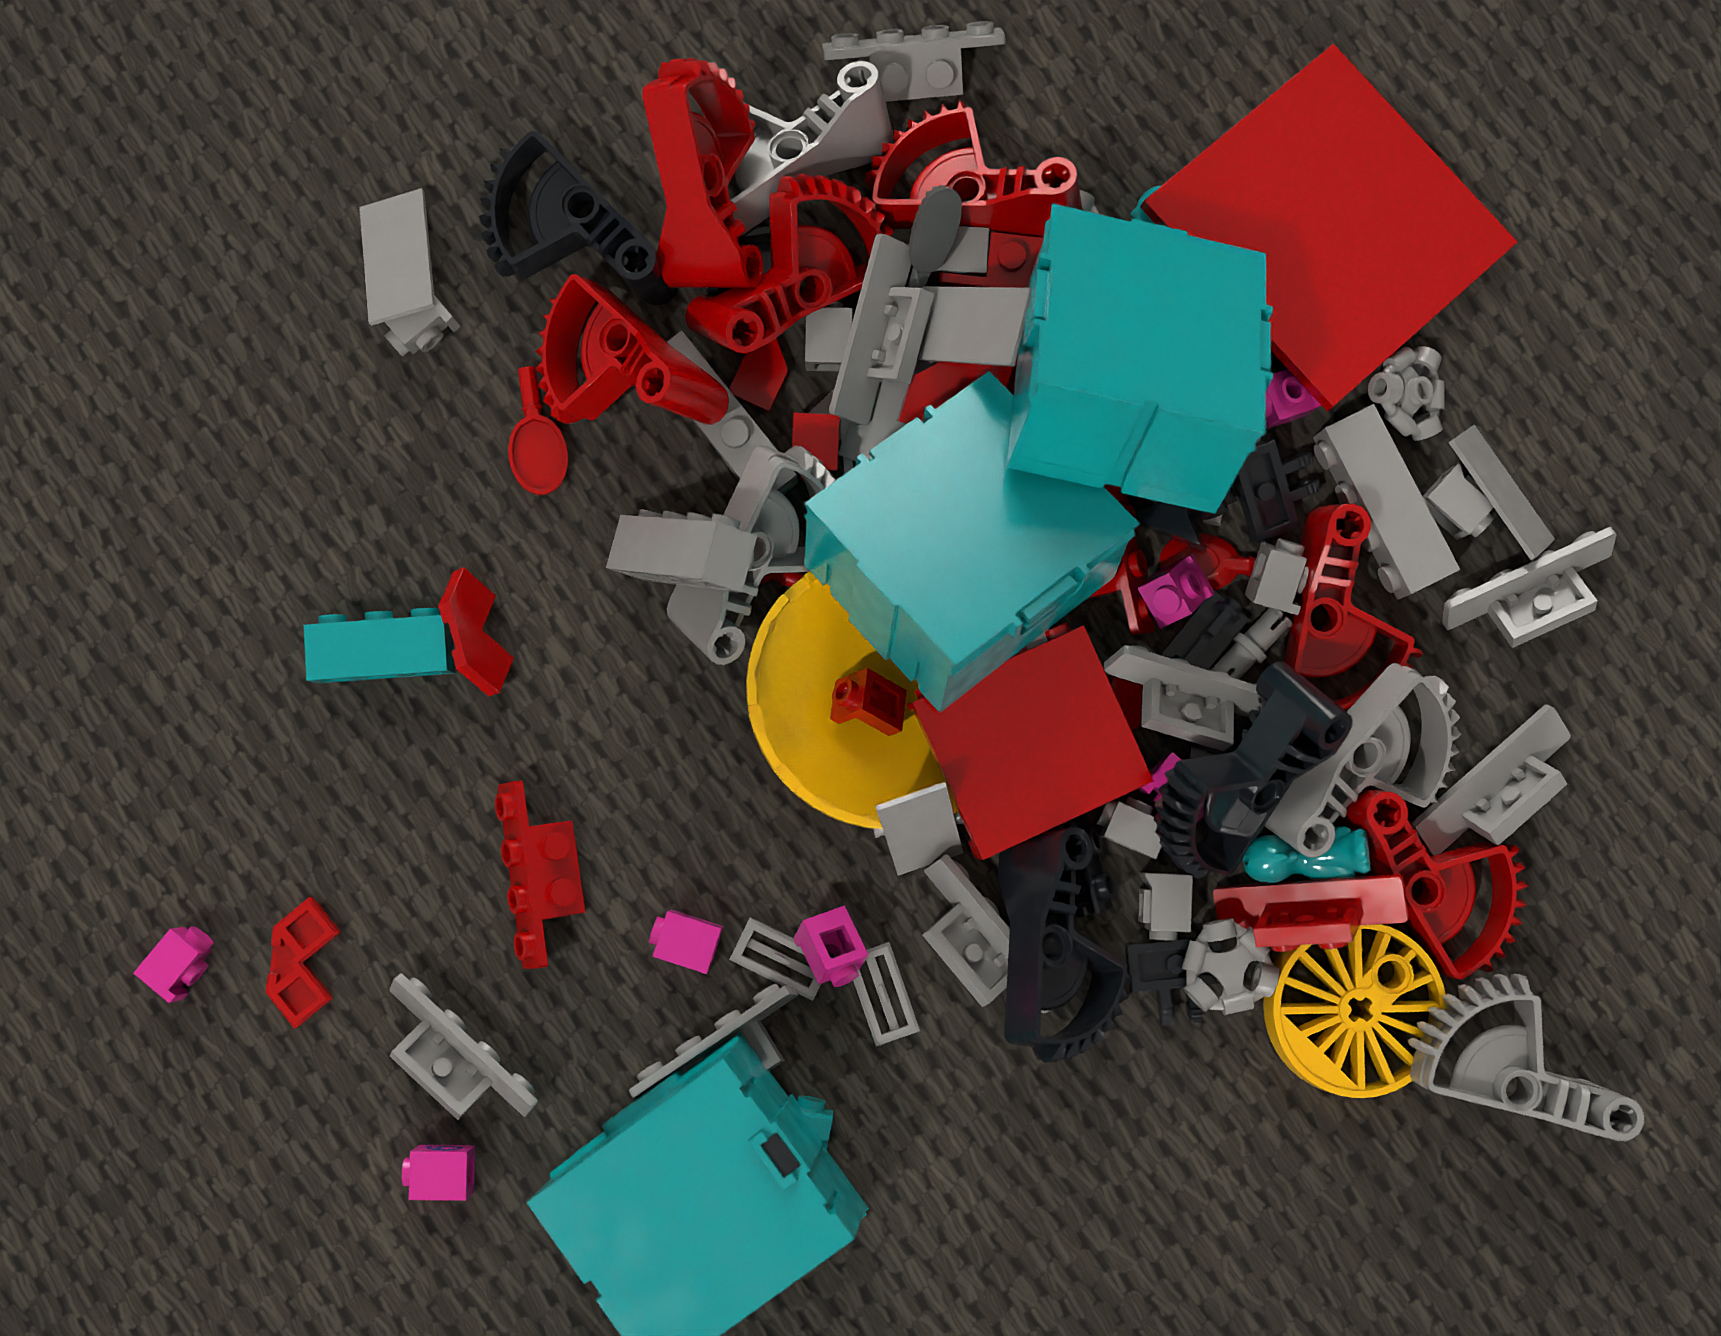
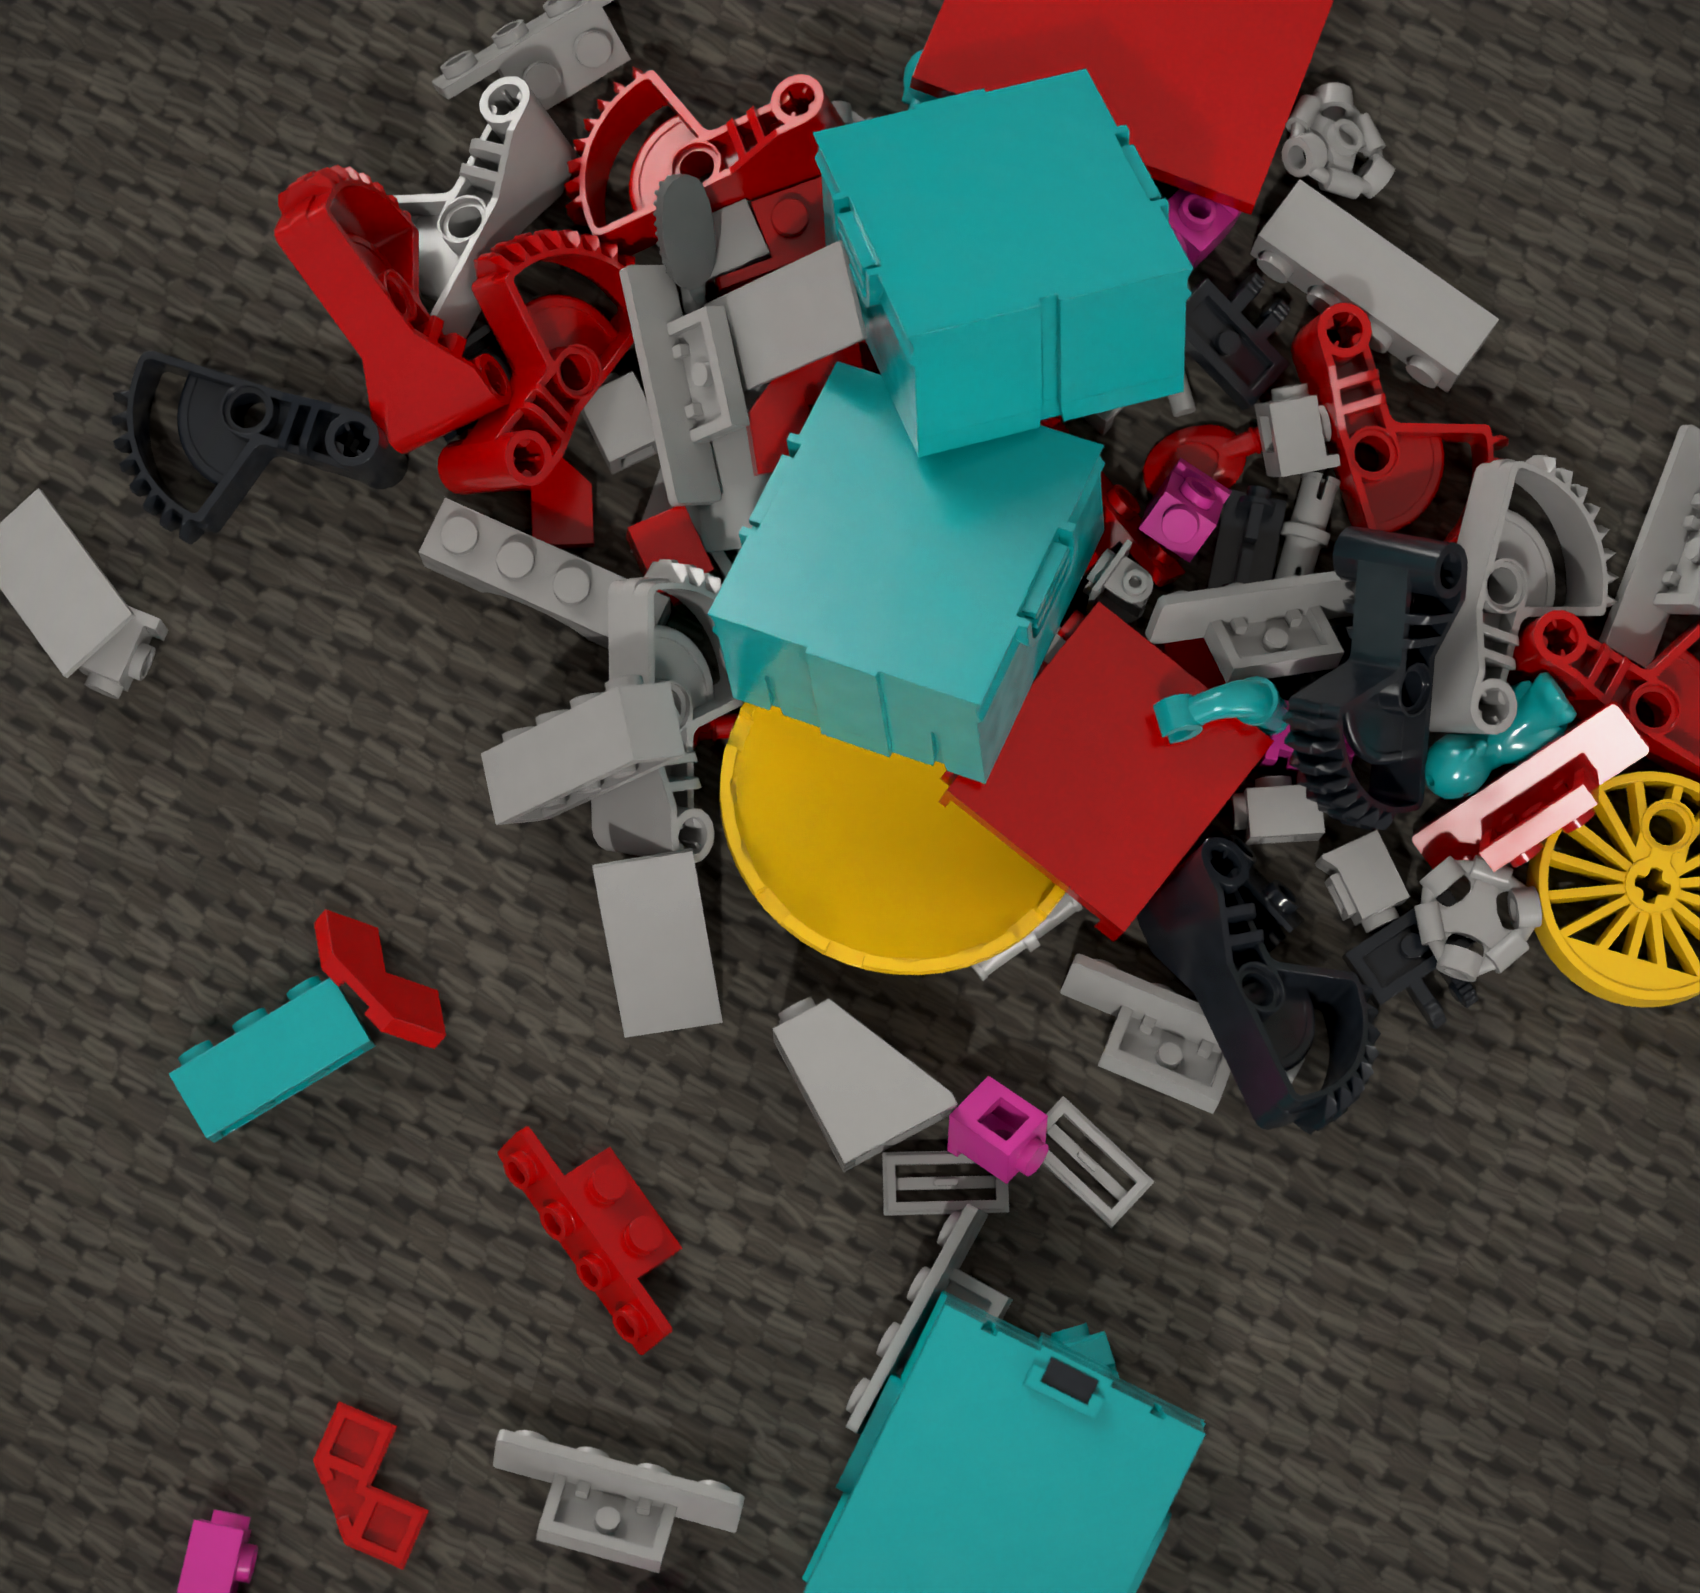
camera: 30 degrees left, 5 degrees down
(536, 444) = (334, 721): red piece -> none
(615, 355) = (379, 566): red arm -> none
(669, 702) = (657, 943): none -> light grey piece
(685, 940) = (821, 1216): dark pink brick -> none
(751, 866) = (856, 1082): none -> light grey slope
(869, 699) = (893, 817): red bracket -> none
(920, 828) = (1031, 935): light grey piece -> none
(1104, 620) = (1119, 585): none -> light grey hinge
(1150, 746) = (1250, 700): none -> teal piece
(1179, 521) = (1141, 426): black slope -> none
(1459, 504) = (1460, 245): light grey window -> none
(1502, 491) = (1501, 206): light grey piece -> none
(1537, 594) = (1602, 305): light grey bracket -> none

